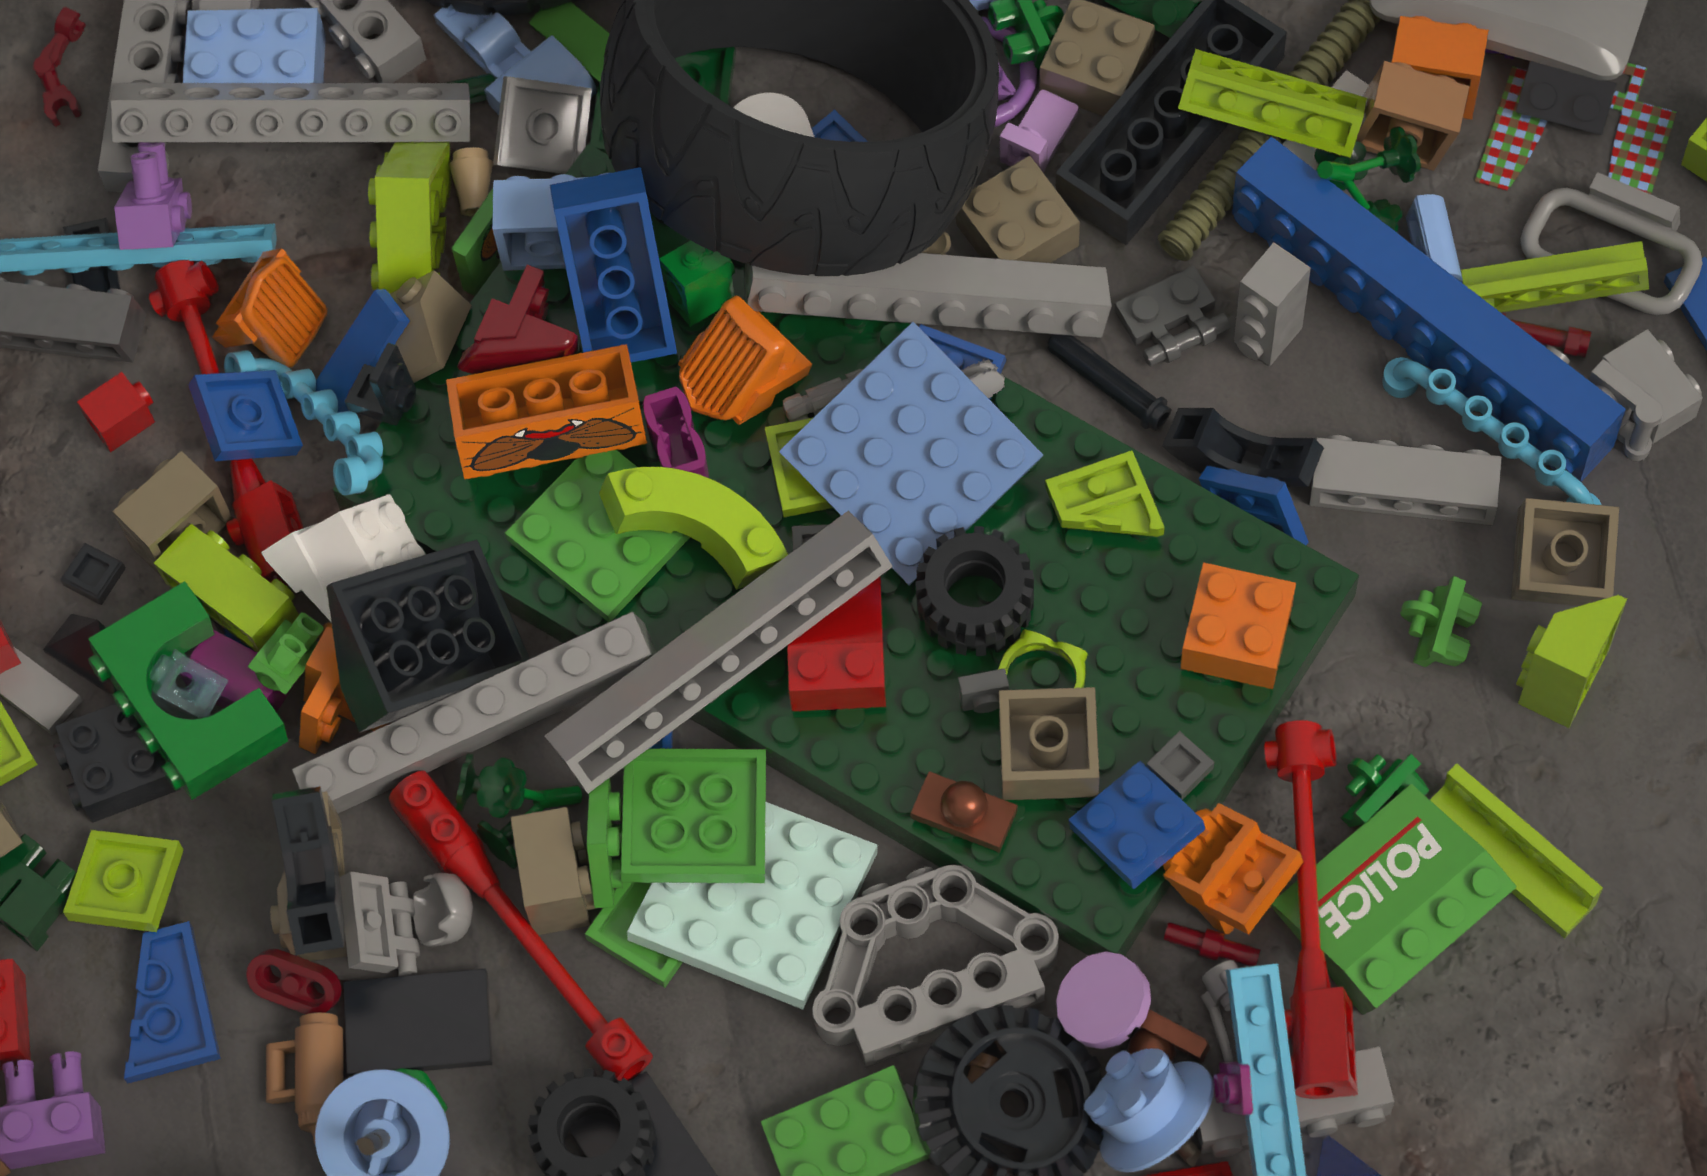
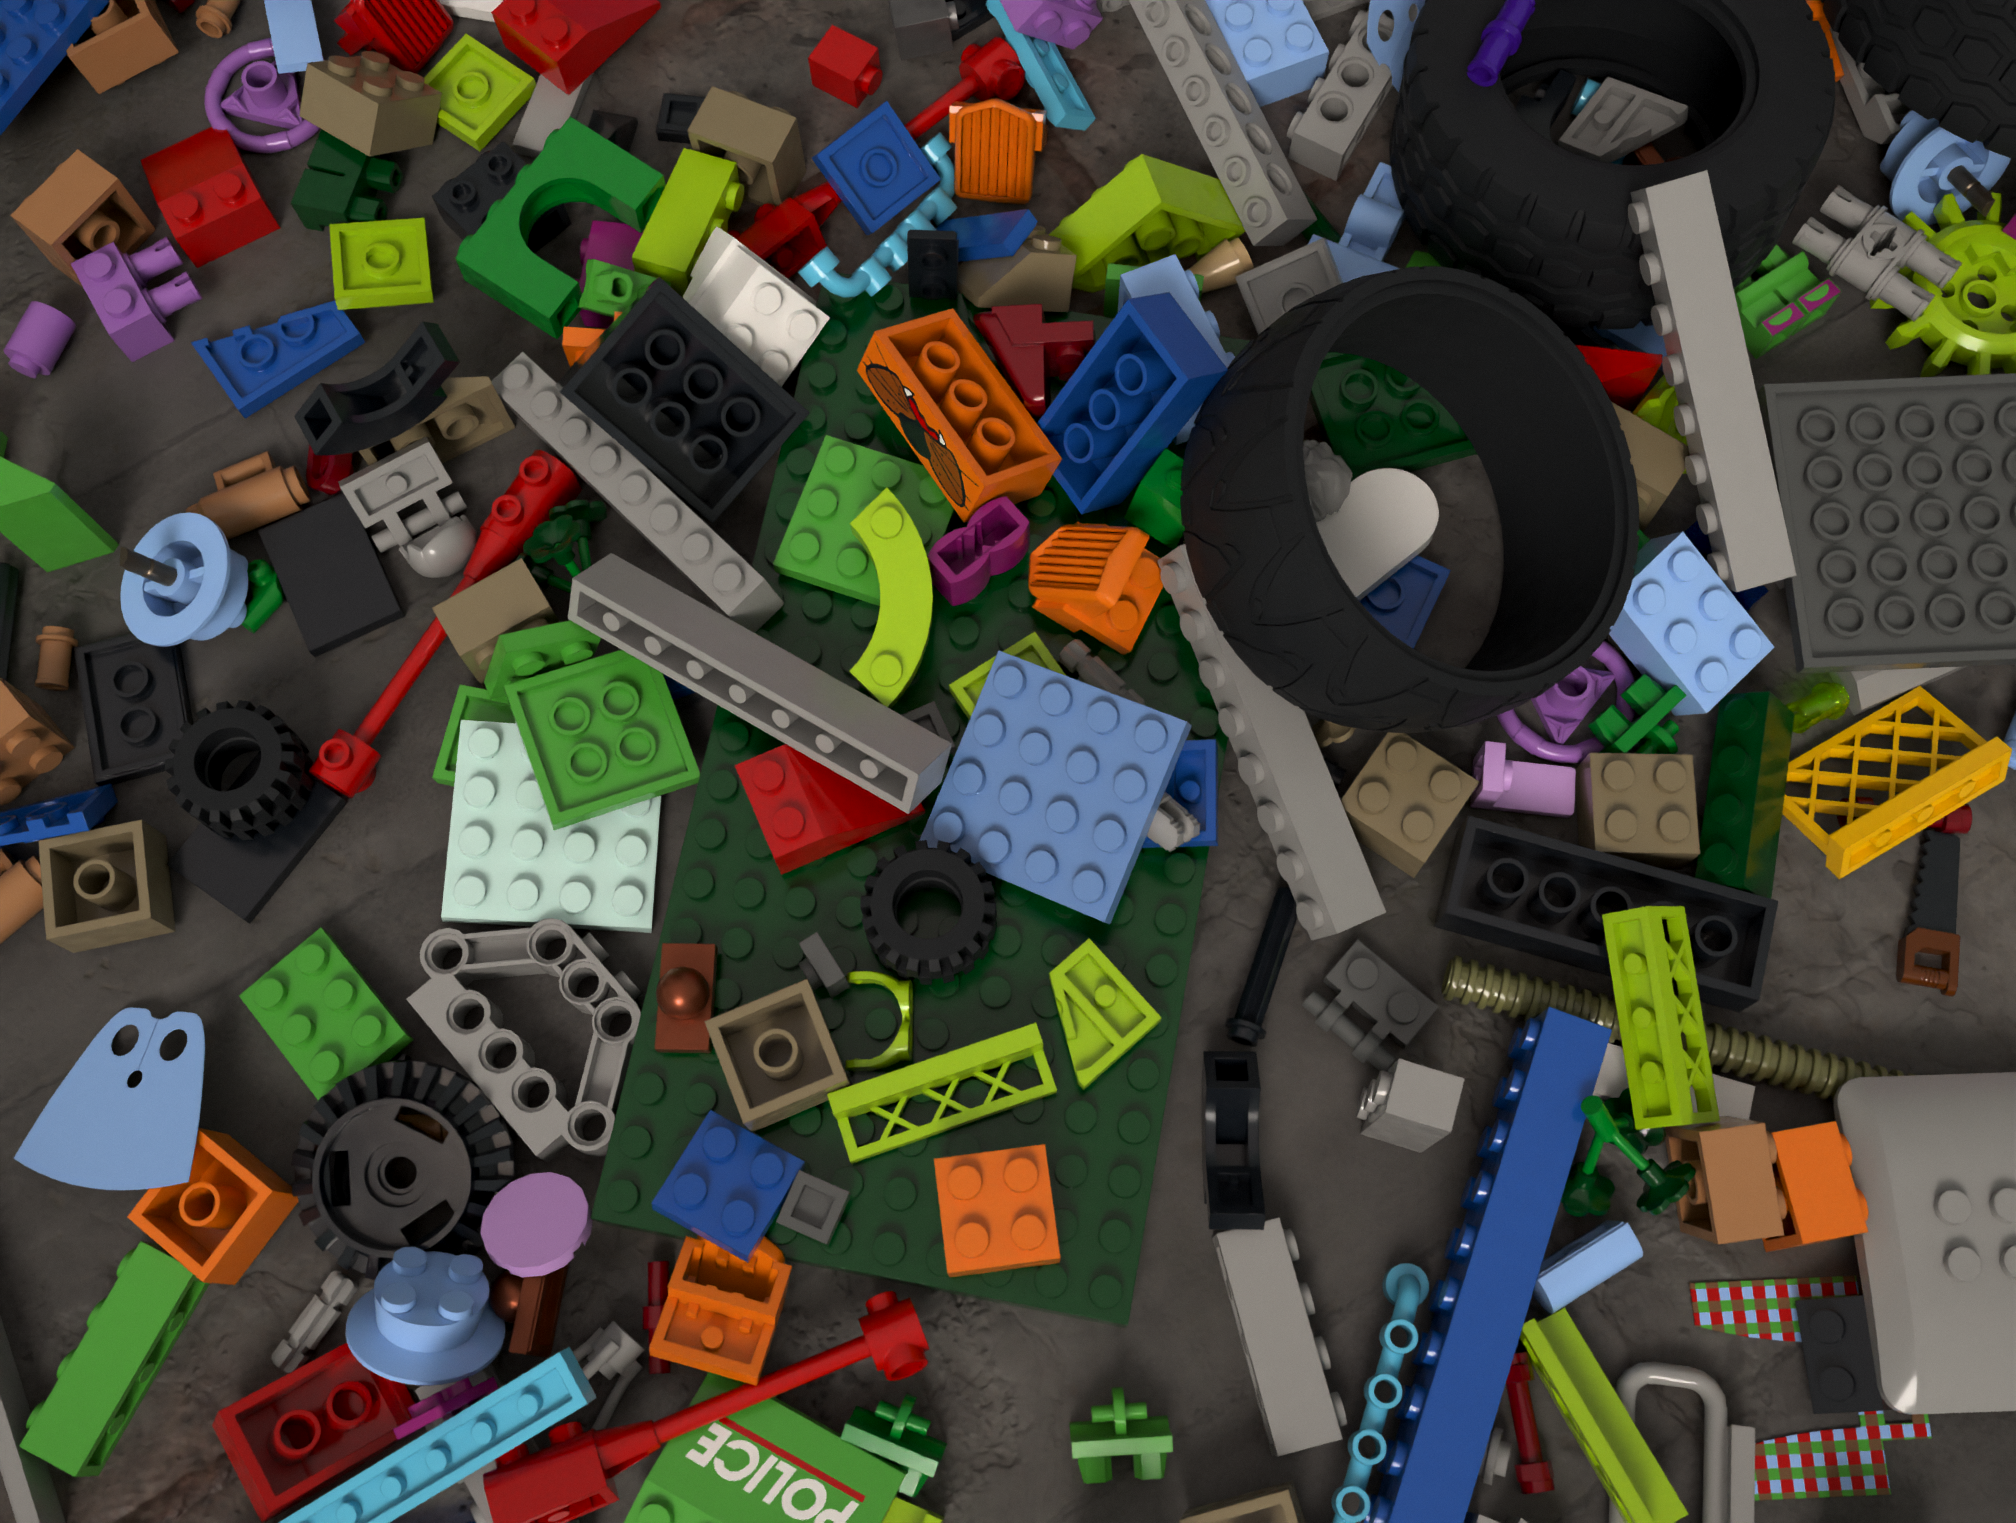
camera: 65 degrees right, 5 degrees up
(199, 695) = (565, 223): clear light blue brick -> none
(1108, 638) = (936, 1073): none -> lime fence
(1259, 496) = (1177, 1177): blue wing -> none

